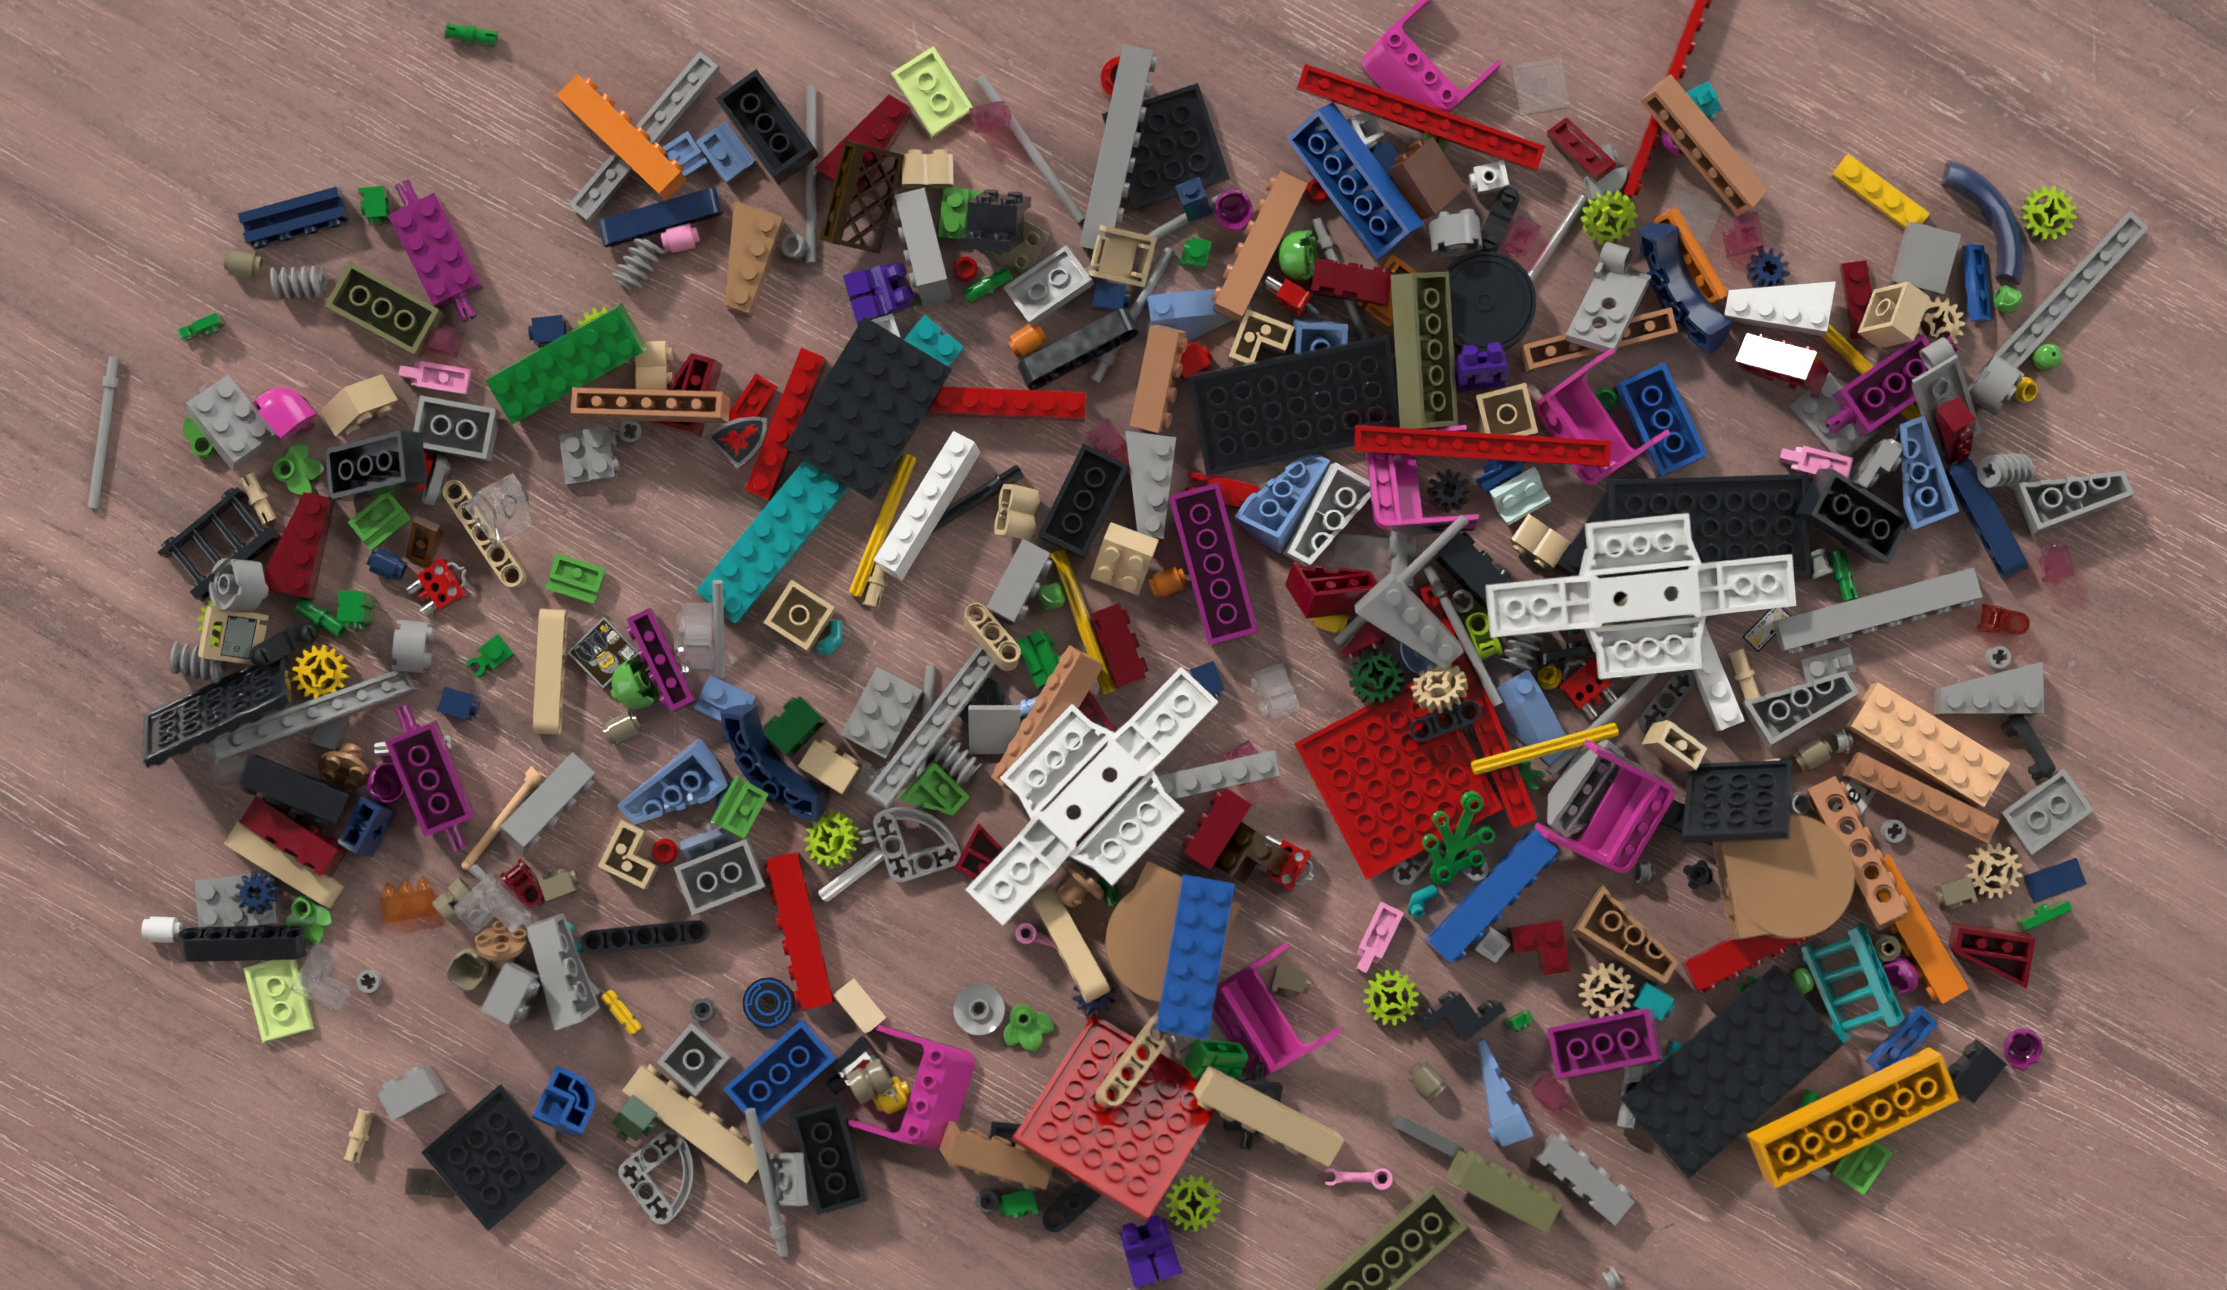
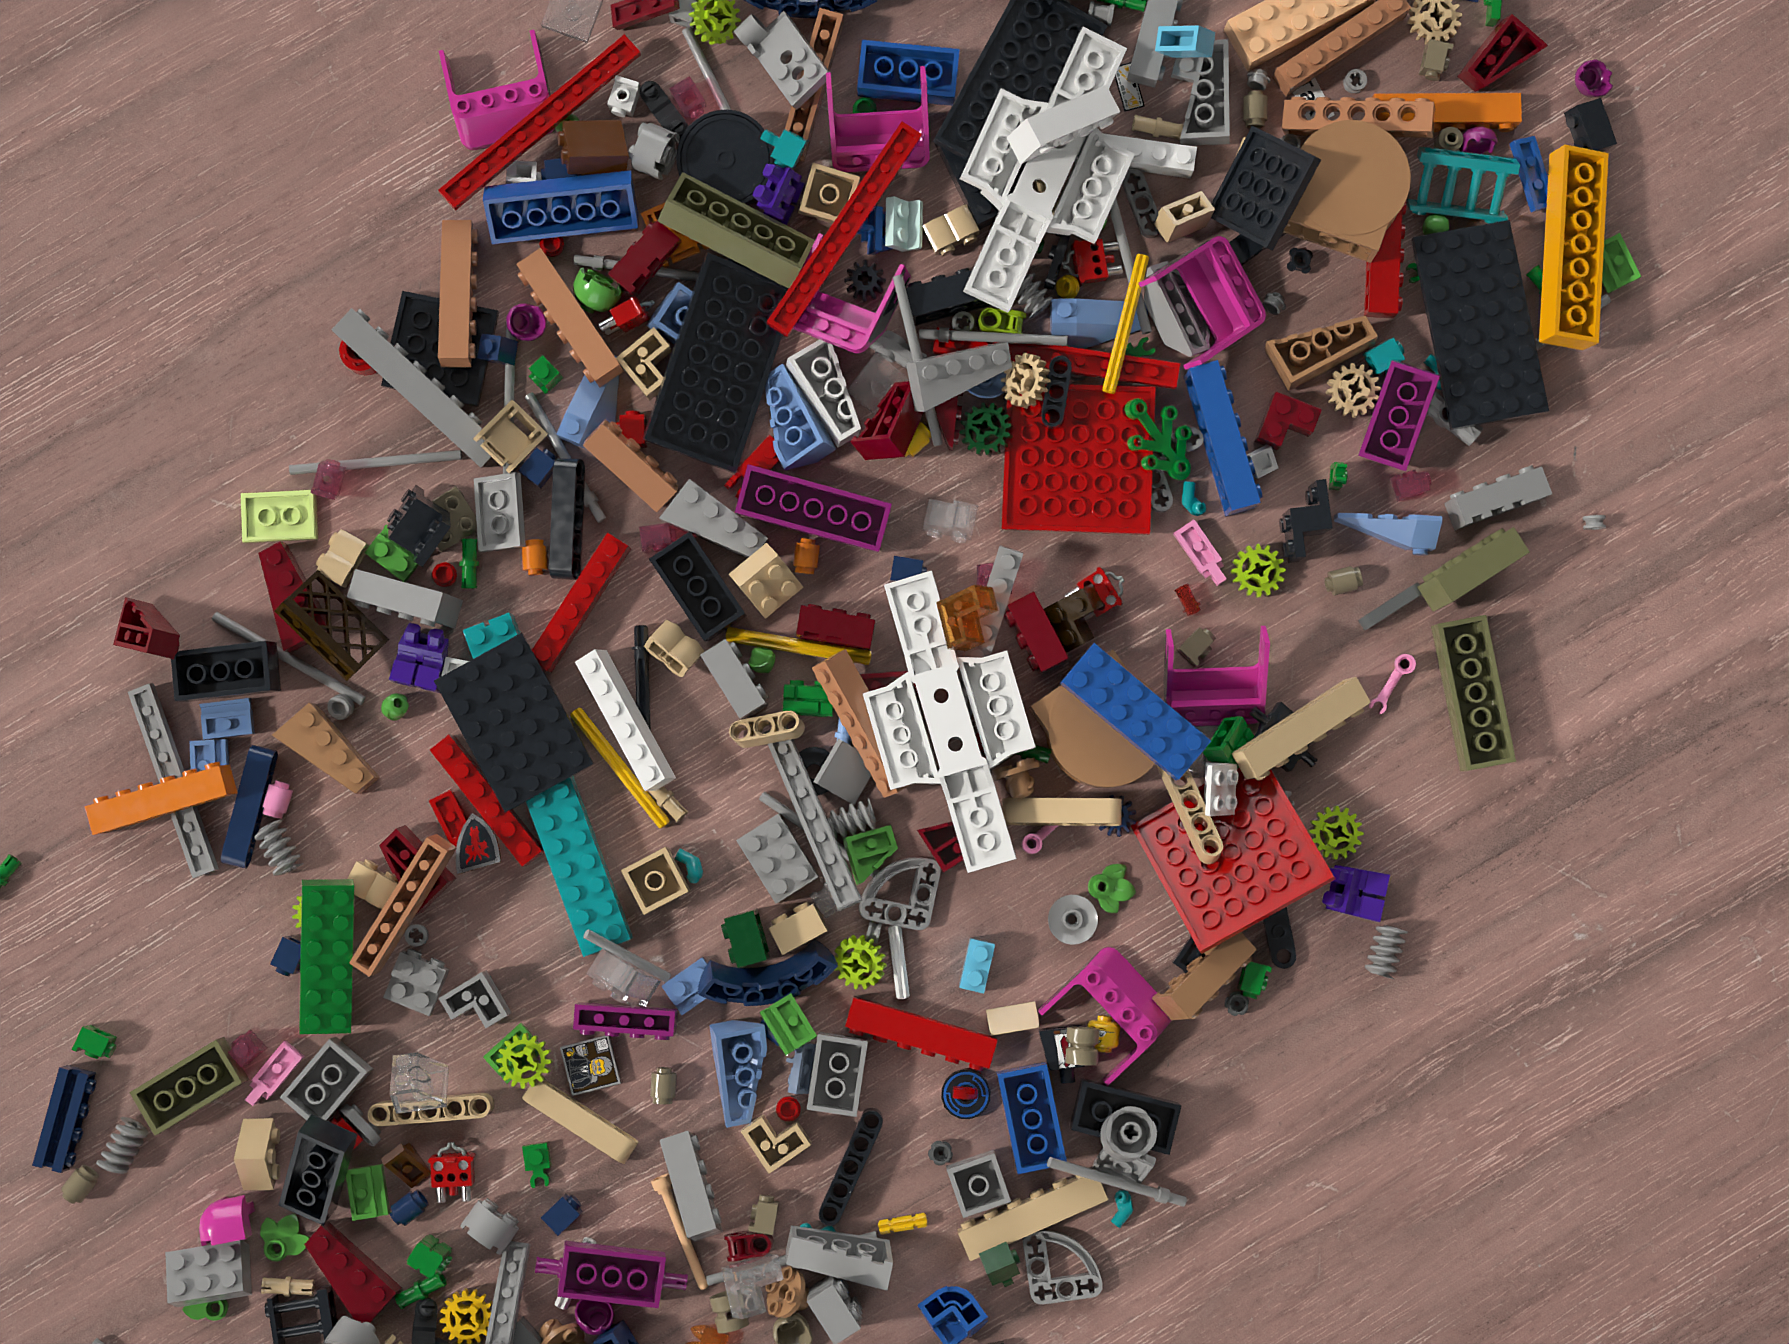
camera: 55 degrees left, 0 degrees up
(205, 326) = (113, 1247): green plate -> none
(435, 251) = (165, 1013): magenta brick -> none
(563, 593) = (529, 1050): none -> lime gear
(610, 518) = (479, 994): none -> light grey brick
(633, 685) = (633, 1055): bright green cylinder -> none
(748, 1203) = (1125, 1208): none -> teal arm
(763, 36) = (146, 630): none -> dark red wedge
(768, 1001) = (964, 1092): none -> red tile
(822, 294) = (394, 706): none -> bright green piece
(827, 1171) = (1139, 1125): none -> light grey brick
(888, 946) = (976, 965): none -> medium azure piece
(1169, 1073) = (1220, 788): none -> white bracket
(1192, 752) = (961, 616): none -> clear orange brick
(1223, 133) = (456, 293): none -> nougat brick
(1327, 949) = (1187, 600): none -> clear red pin
(1525, 352) = (787, 147): none -> teal brick
(1688, 588) = (1063, 124): none -> white wedge
(1833, 655) = (1185, 41): none -> medium azure piece

